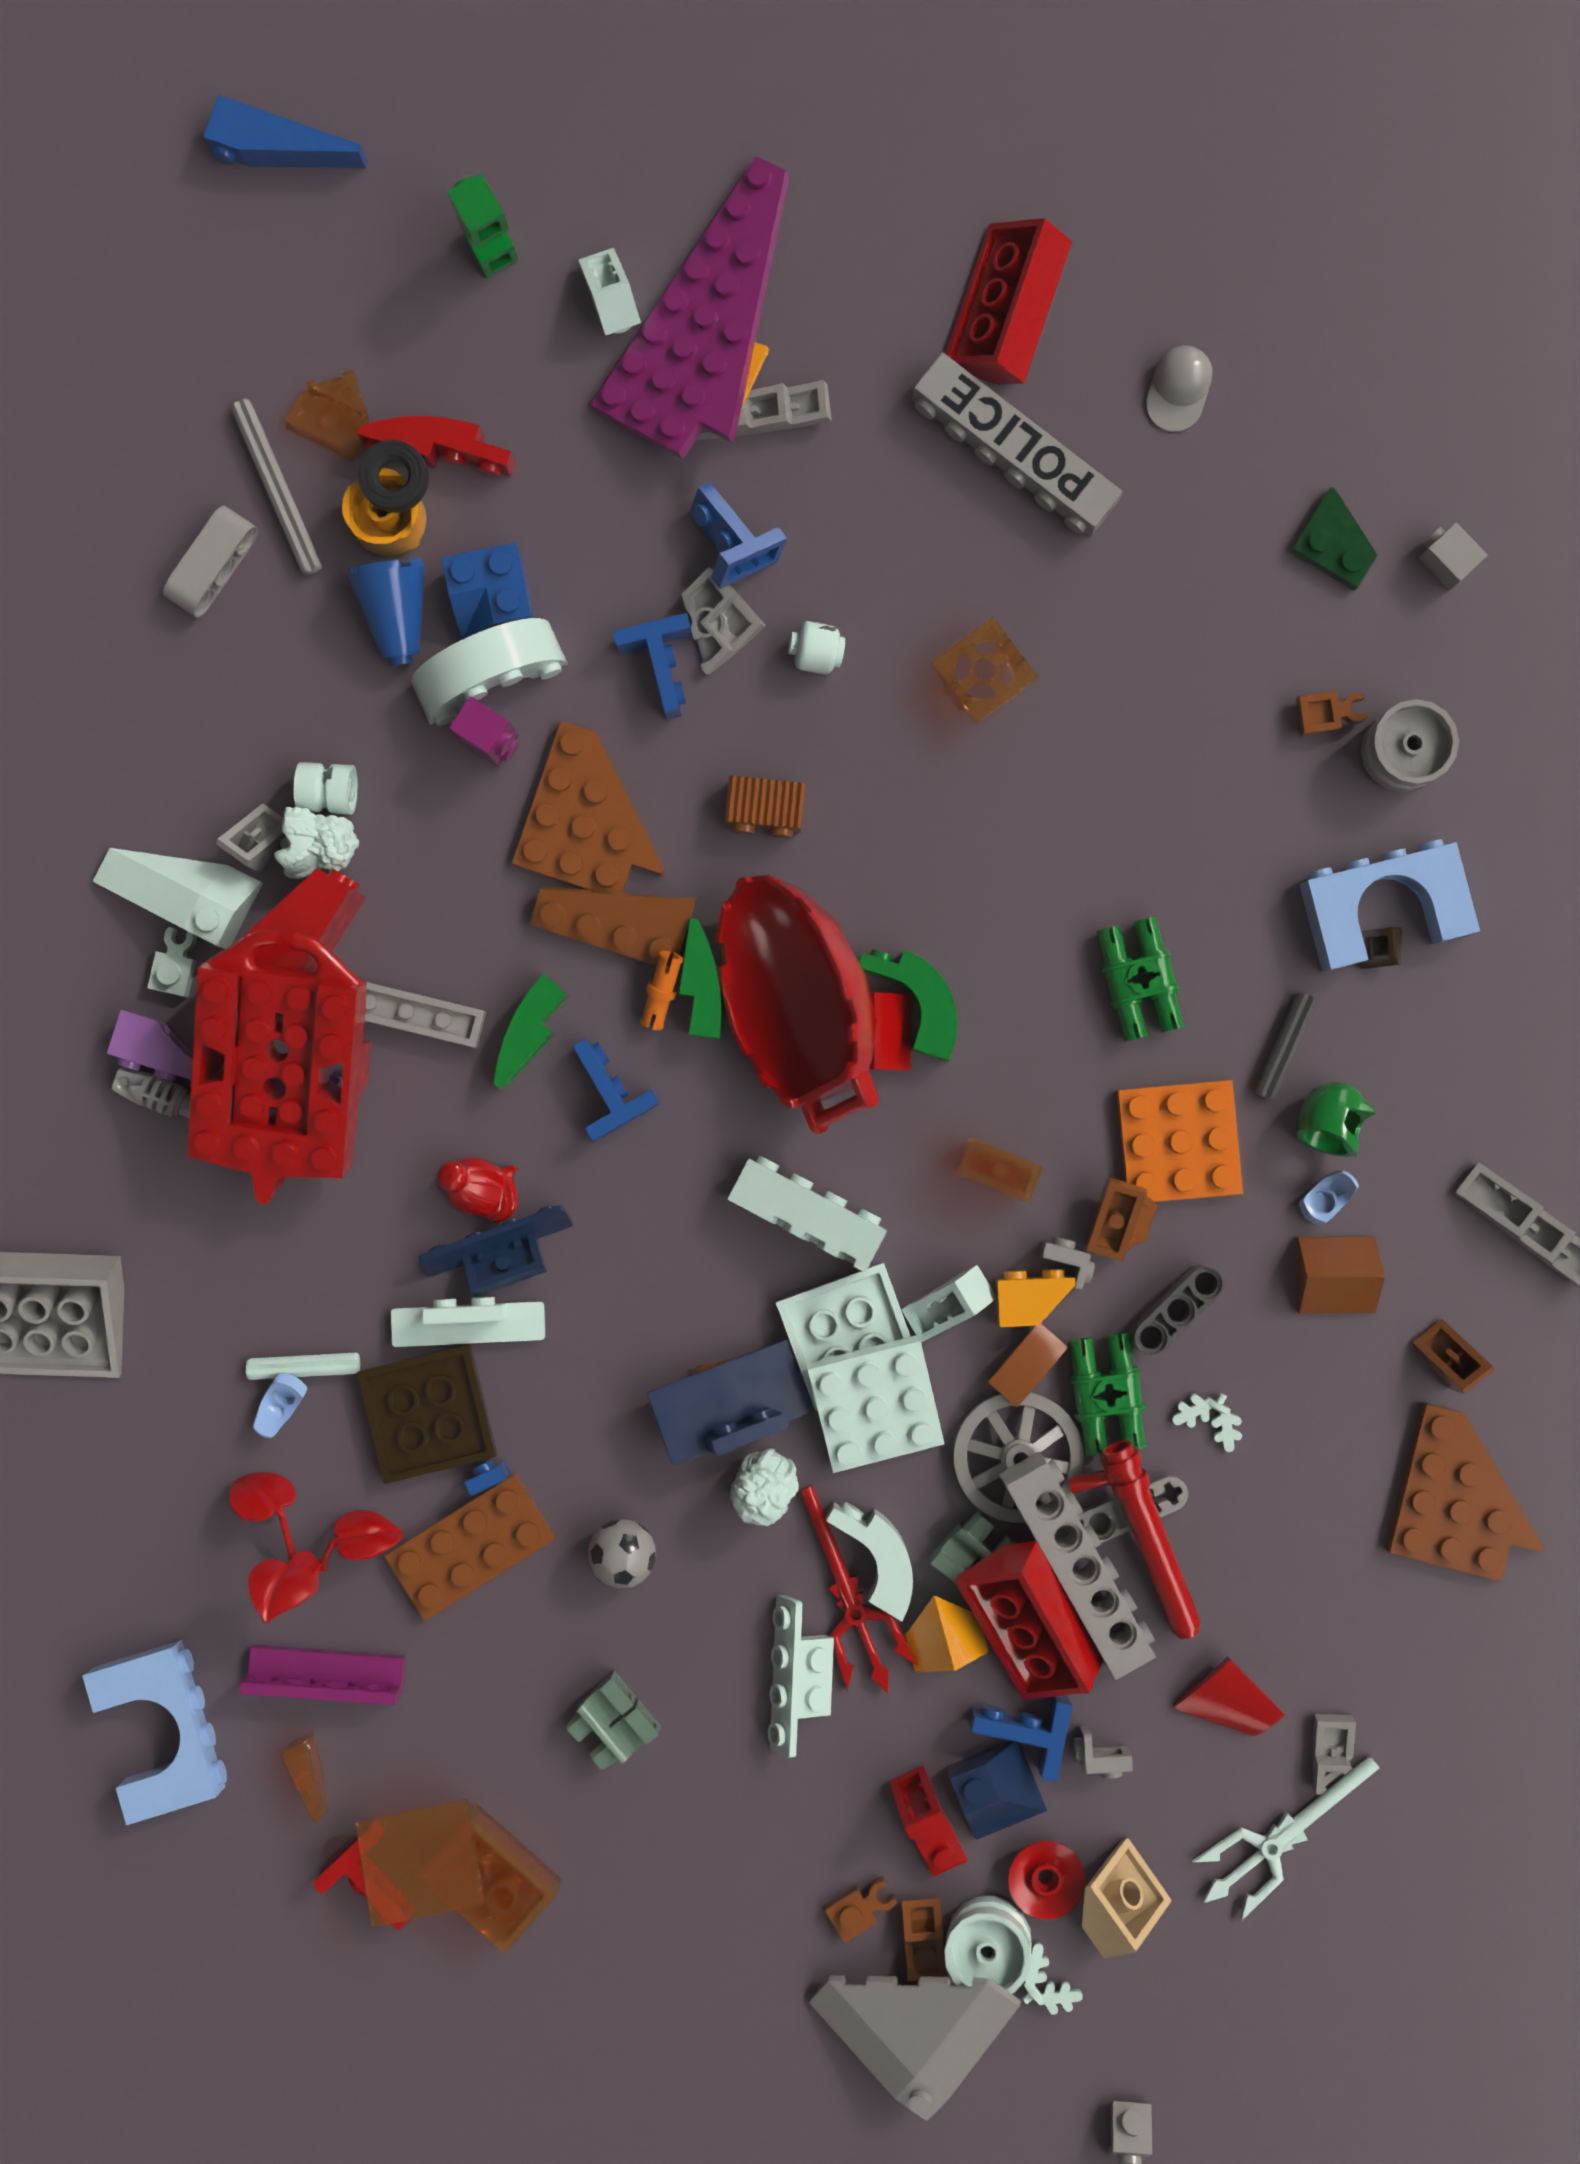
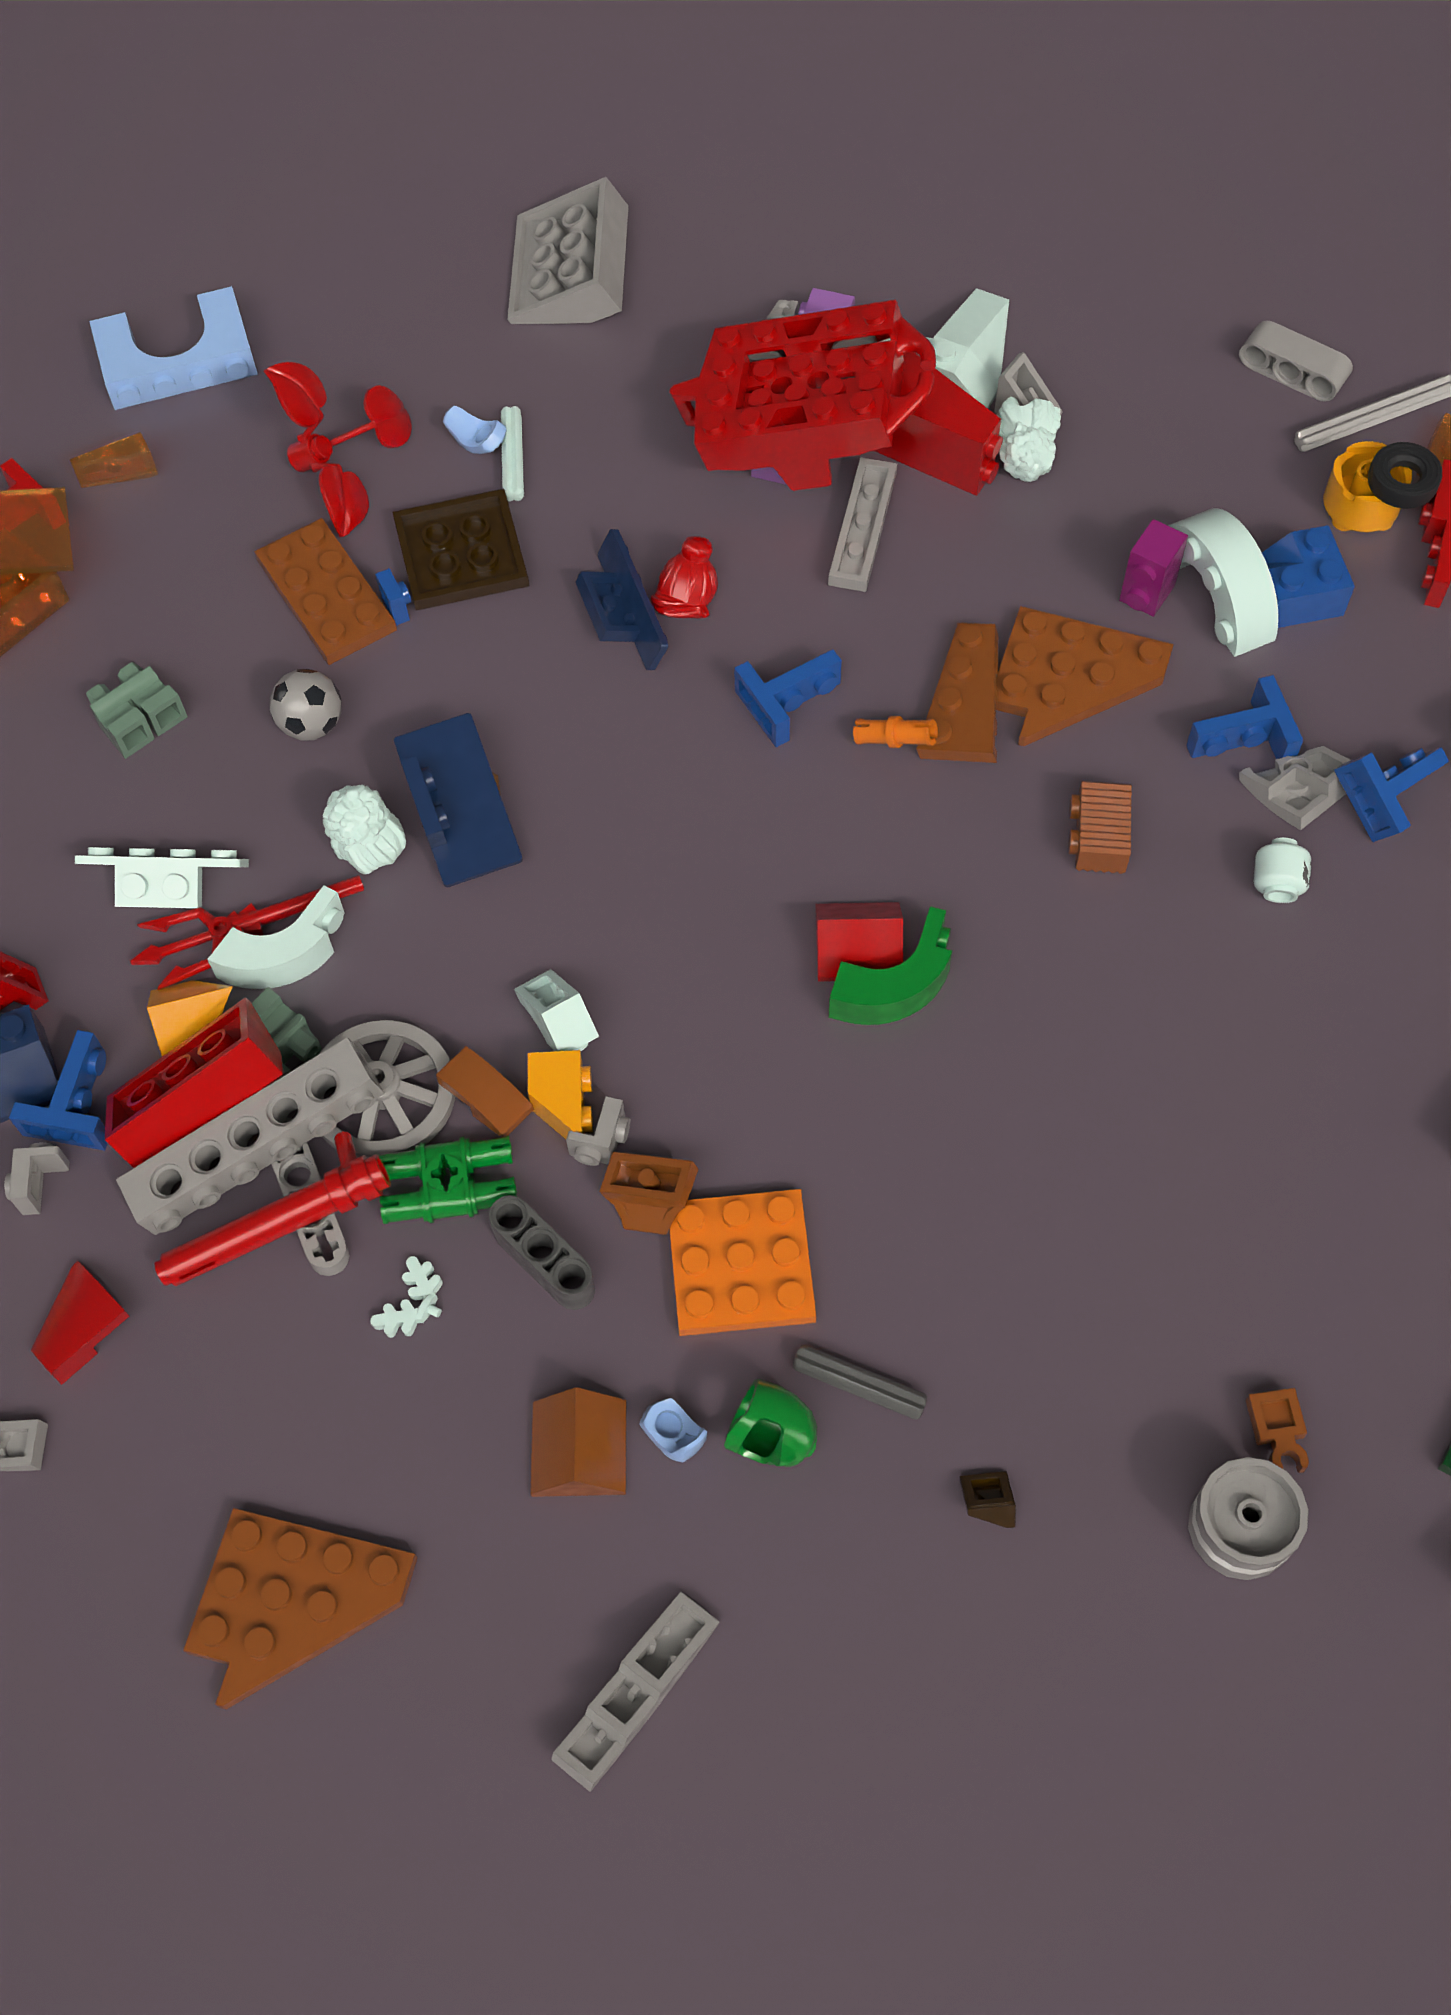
camera: 85 degrees right, 25 degrees down
(324, 1674) = (209, 475): magenta fence -> none
(326, 788) = (1082, 450): light aqua wheel -> none
(392, 605) = (1277, 493): blue cone -> none
(467, 1324) = (549, 582): light aqua bracket -> none
(527, 1030) = (848, 621): green slope -> none
(701, 982) = (906, 772): green slope -> none
(796, 999) = (892, 842): red windscreen -> none
(807, 1213) = (655, 872): light aqua wedge -> none
(842, 1318) = (523, 917): light aqua plate -> none
(875, 1403) = (448, 937): light aqua plate -> none
(978, 708) = (1284, 992): clear orange piece -> none
(999, 1169) = (706, 1053): clear orange brick -> none
(1154, 962) = (923, 1230): green pin -> none
(1432, 874) = (1049, 1435): light blue arch -> none
(1452, 1357) = (472, 1582): dark orange slope -> none

